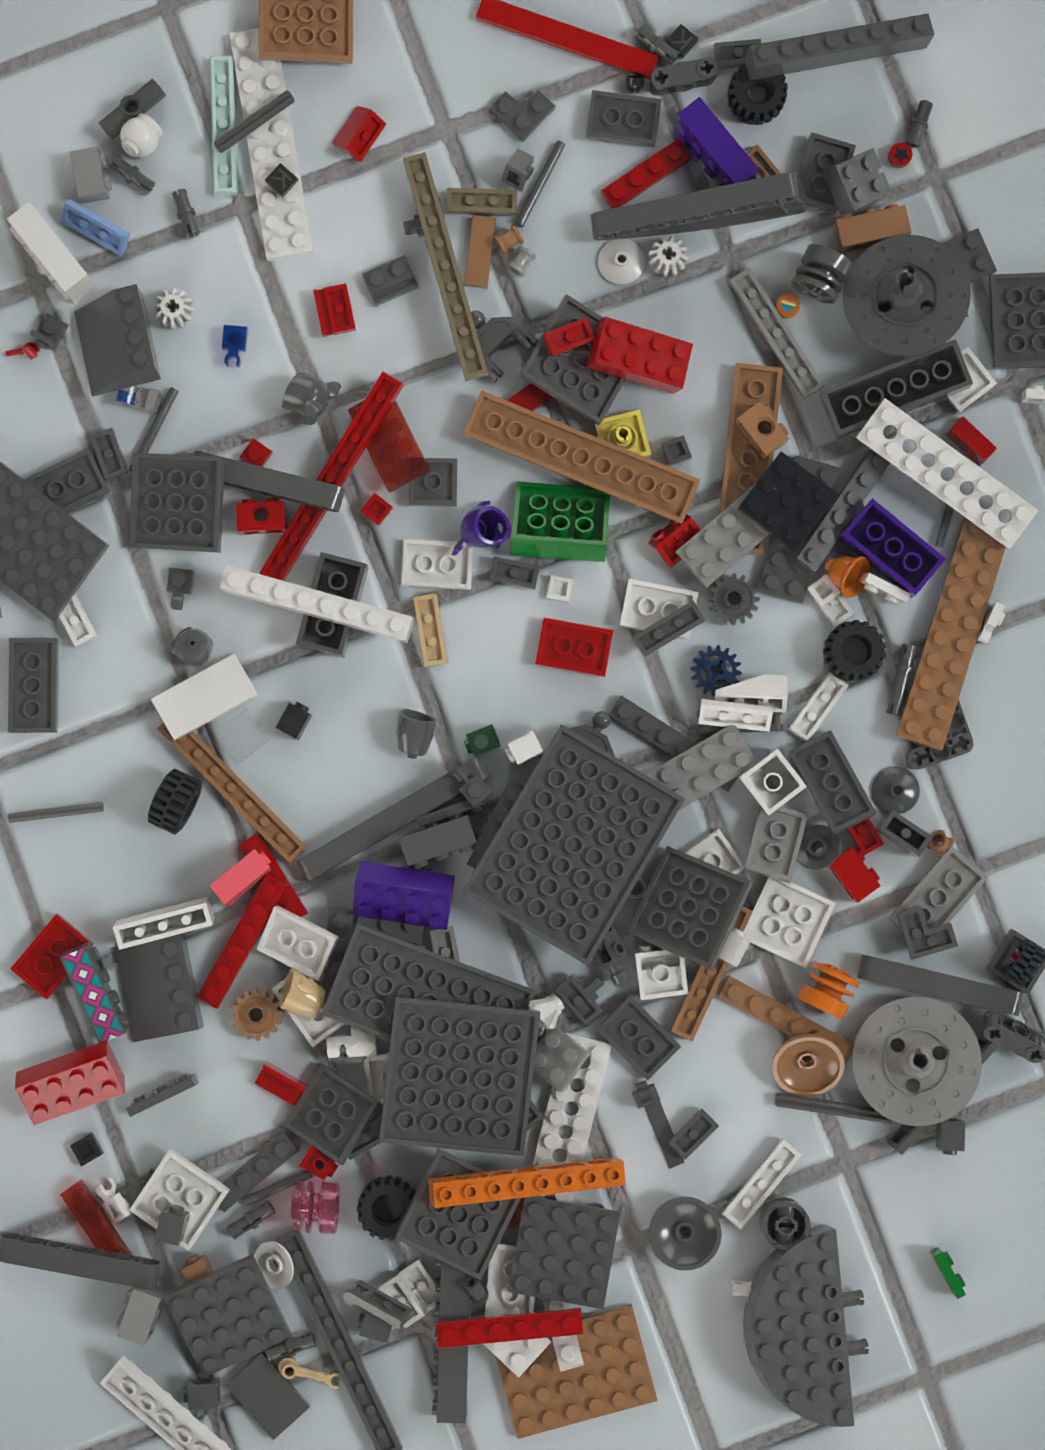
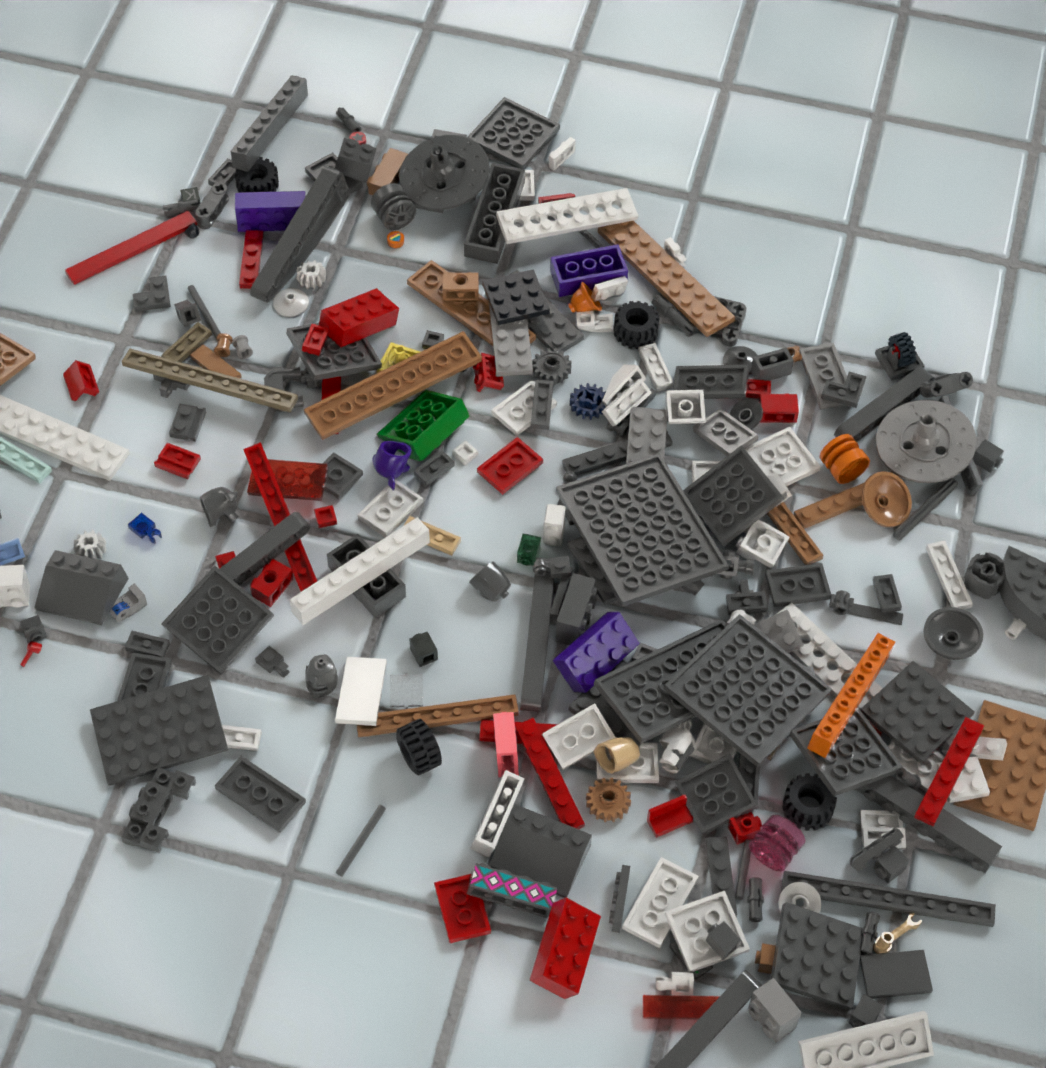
camera: 65 degrees left, 30 degrees down
(86, 1149) = (622, 980): pearl dark grey tile -> none
(158, 421) = (155, 610): dark grey bar -> none
(185, 213) = (36, 502): dark grey pin -> none
(187, 1132) = (665, 890): none -> white plate
(254, 121) = (19, 424): dark grey axle -> none
(281, 180) = (69, 434): pearl dark grey tile -> none
(623, 118) = (207, 248): dark grey plate -> none
(776, 333) = (407, 252): light grey plate -> none
(841, 511) = (533, 260): dark grey plate -> none

